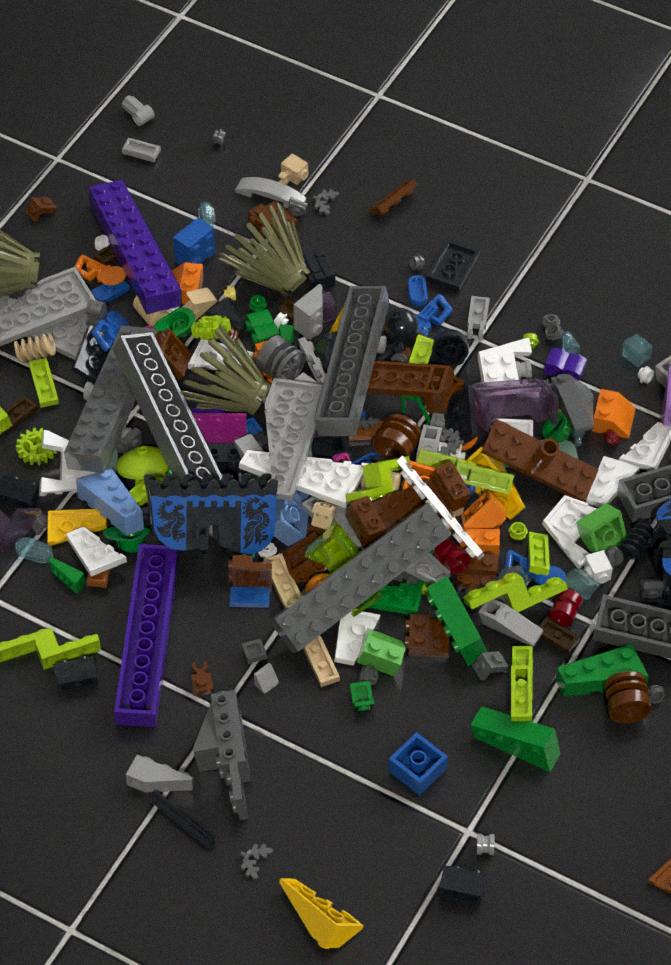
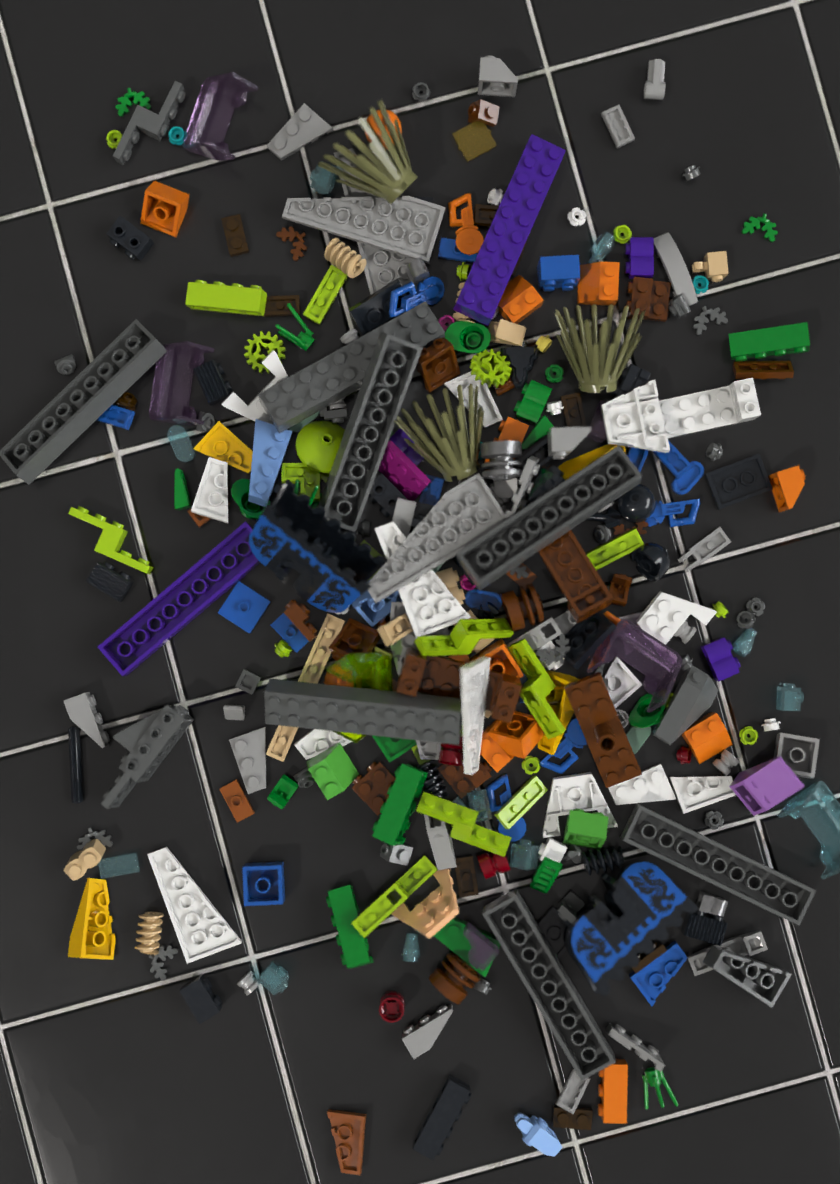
camera: 45 degrees right, 35 degrees up
(29, 179) = (496, 78): none -> light grey slope
(50, 228) = (474, 140): none -> clear yellow piece
(56, 415) = (303, 340): none -> green plant
(127, 297) = (463, 270): none -> lime plate
(170, 214) = (576, 221): none -> white plate
(197, 610) = (244, 607): none -> blue plate
(201, 680) = (191, 669): reddish brown plate -> none
(213, 198) = (622, 229): none -> lime plate
(226, 227) = (598, 283): none -> orange slope
(239, 200) = (640, 257): none -> dark purple brick
(255, 609) = (282, 648): none -> lime plate
(262, 869) = (84, 859): none -> tan brick
(292, 134) = (755, 223): none -> green animal
(293, 859) = (118, 865): none -> clear light blue tile
(297, 185) = (704, 284): none -> teal plate
(313, 700) = (251, 758): none -> light grey wing
(334, 735) = (237, 800): none -> dark orange plate
(338, 279) = (625, 422): none -> white wing
(368, 878) = (149, 932): none -> tan piece
(380, 176) = (769, 342): none -> green wedge
(383, 247) = (701, 410): none -> white plate
(388, 838) = (193, 916): none -> white wing
(397, 286) = (674, 461): none -> blue plate
(402, 884) = (160, 972): none -> dark grey animal
(487, 238) = (787, 486): none -> orange slope
(501, 823) = (274, 978): none -> clear light blue brick
(527, 490) = (573, 738): none -> blue piece
(560, 664) = (434, 910): none -> light nougat wing
(577, 716) = (411, 948): none -> clear light blue cone
(607, 760) = (391, 1006): none -> dark red wheel
(617, 586) = (543, 876): none -> green slope
(621, 651) = (482, 949): none -> clear purple arch
(639, 392) = (753, 735): none -> lime plate
(644, 418) = (727, 760): none -> light grey wheel
(654, 760) = (423, 1035): none -> light grey slope

